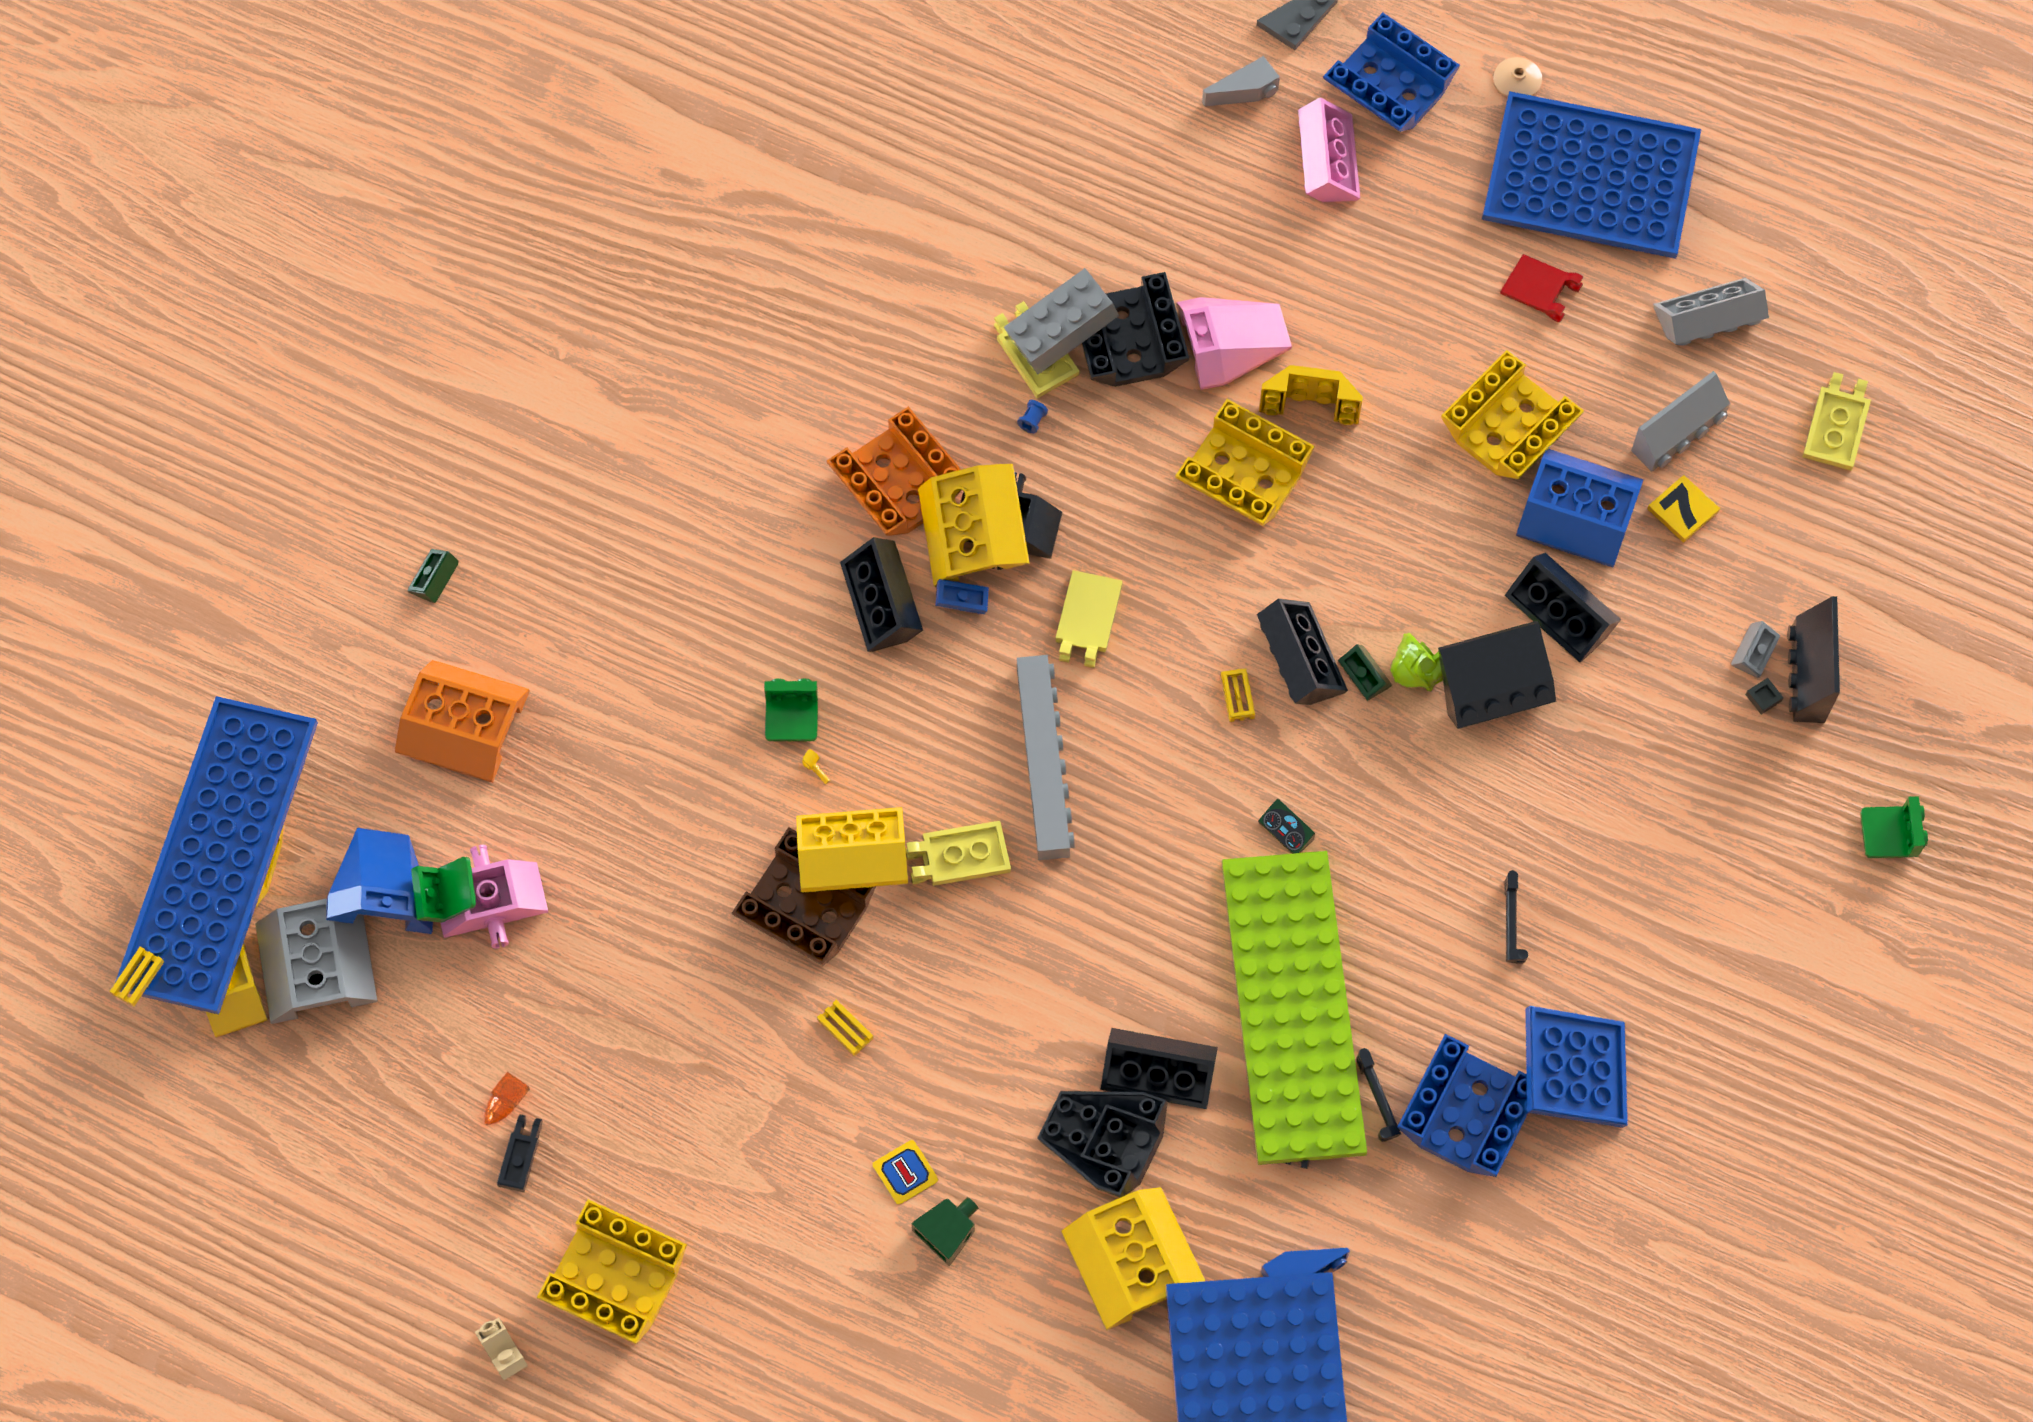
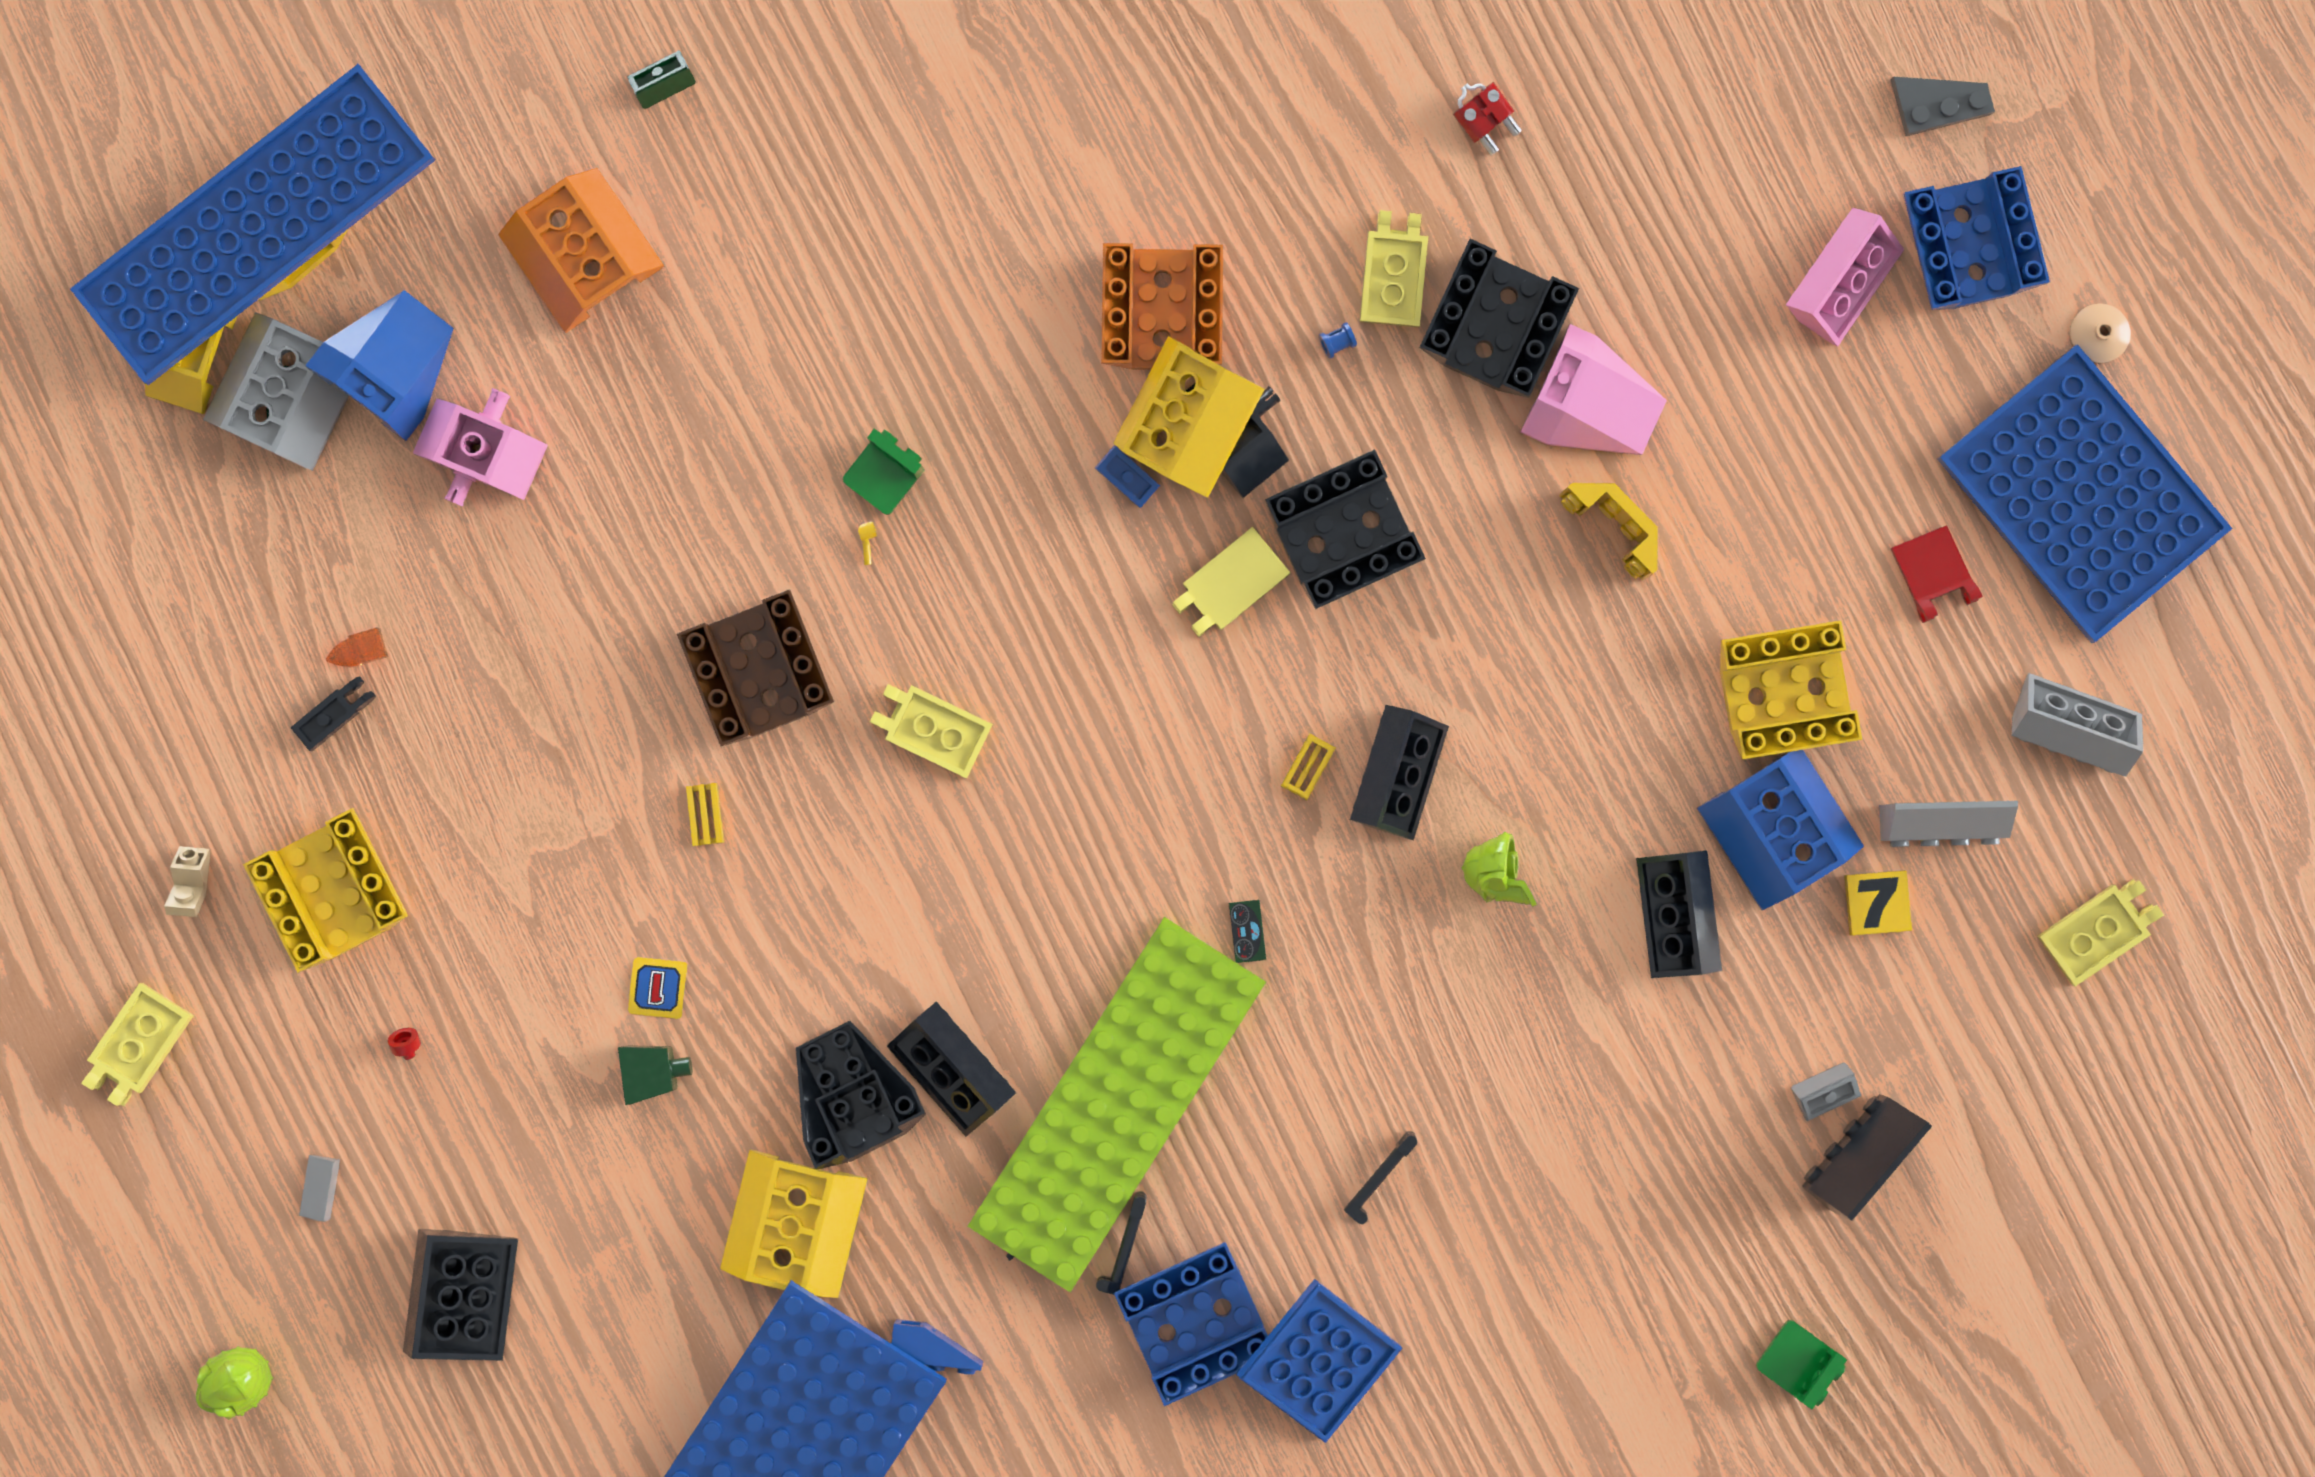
camera: 35 degrees right, 20 degrees up
(130, 968) = (91, 284): yellow tile -> none
(443, 890) = (429, 415): green bracket -> none
(751, 1342) = (404, 1043): none -> red tile
(851, 849) = (827, 655): yellow slope -> none
(881, 594) = (1055, 416): black slope -> none
(1013, 216) = (1484, 113): none -> red piece
(1043, 757) = (1079, 692): light grey brick -> none
(1061, 321) = (1433, 268): light grey brick -> none
(1116, 523) = (1333, 510): none -> black slope
(1245, 85) = (1825, 141): light grey slope -> none
(1255, 453) = (1516, 539): yellow slope -> none
(1364, 672) = (1444, 834): dark green slope -> none
(1496, 675) = (1554, 942): black slope -> none
(1764, 696) = (1793, 1144): pearl dark grey plate -> none

